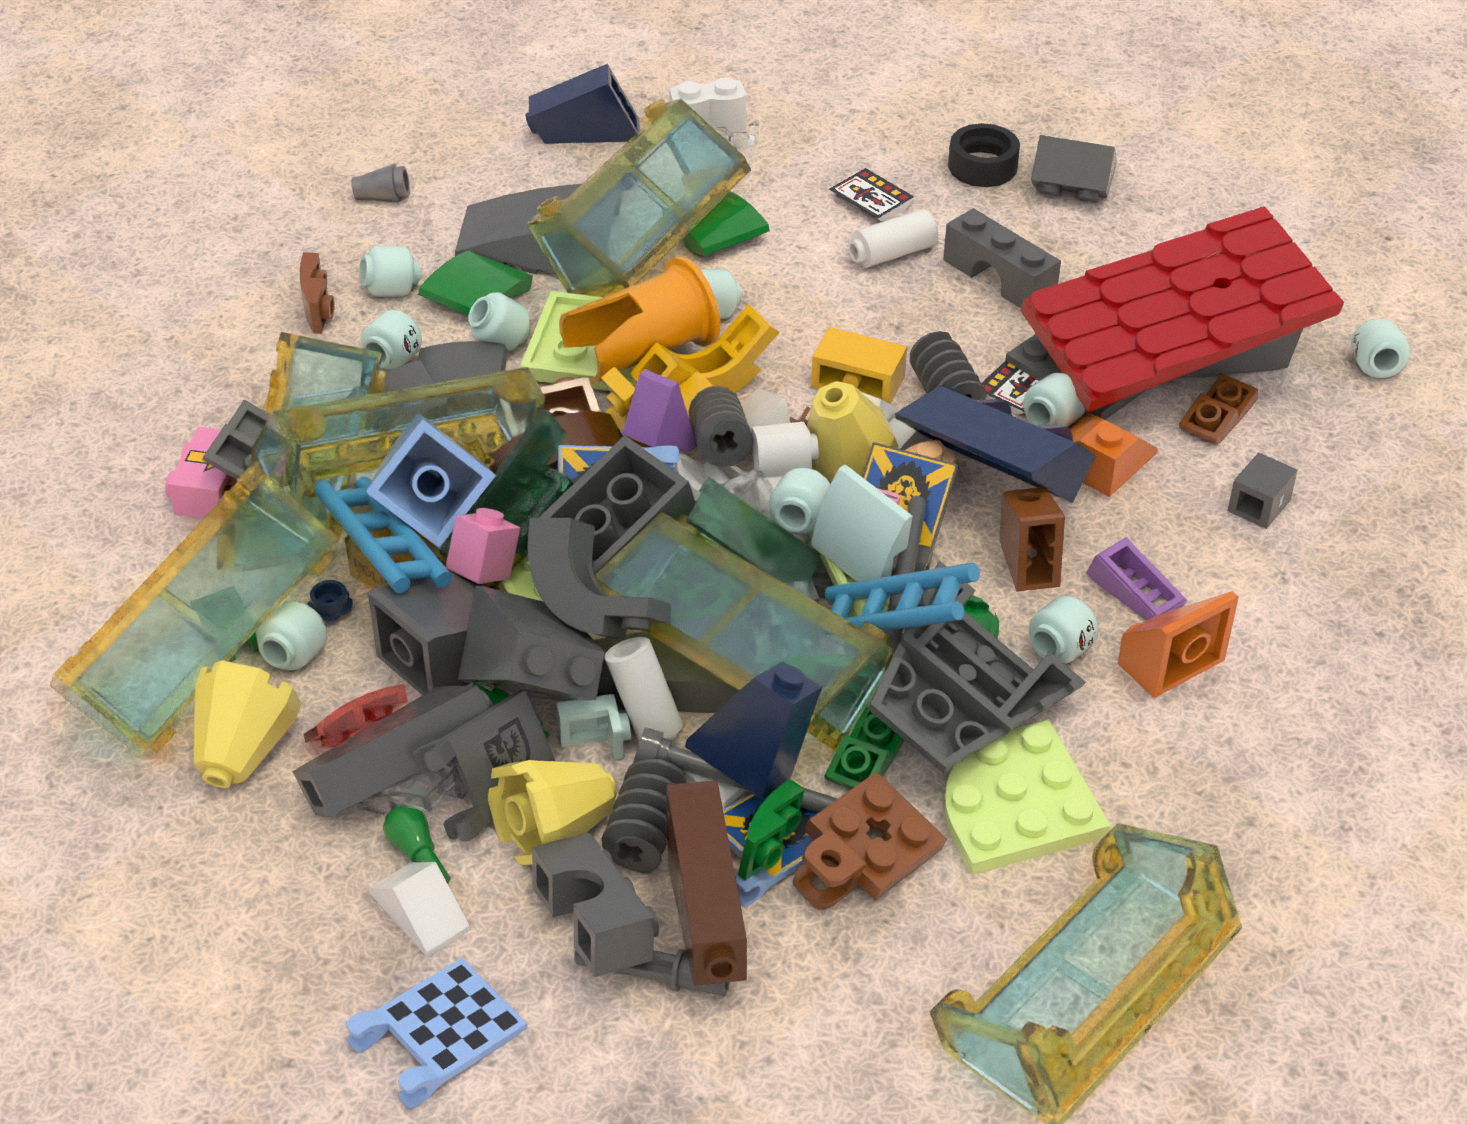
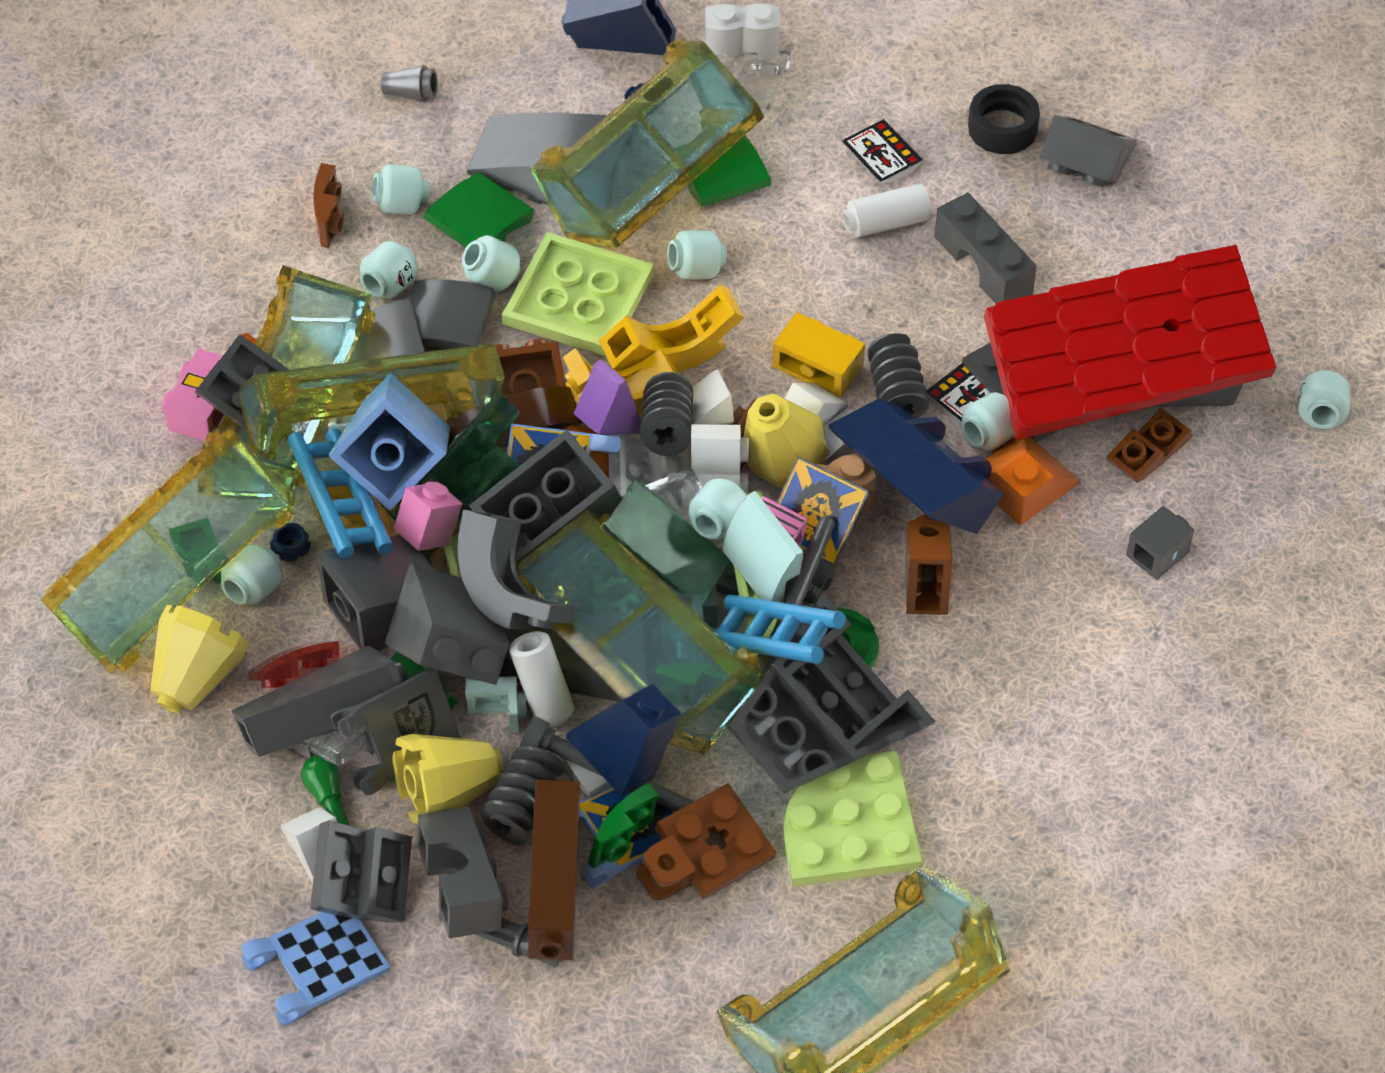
camera: 10 degrees right, 10 degrees up
(475, 921) = (361, 872): none -> dark grey slope
(663, 310) = (621, 285): light orange piece -> none
(867, 750) = (722, 764): green slope -> none
(1064, 629) = (932, 664): light aqua head -> none
(1107, 574) = (989, 608): medium lavender slope -> none
(1178, 643) = (1029, 694): orange slope -> none

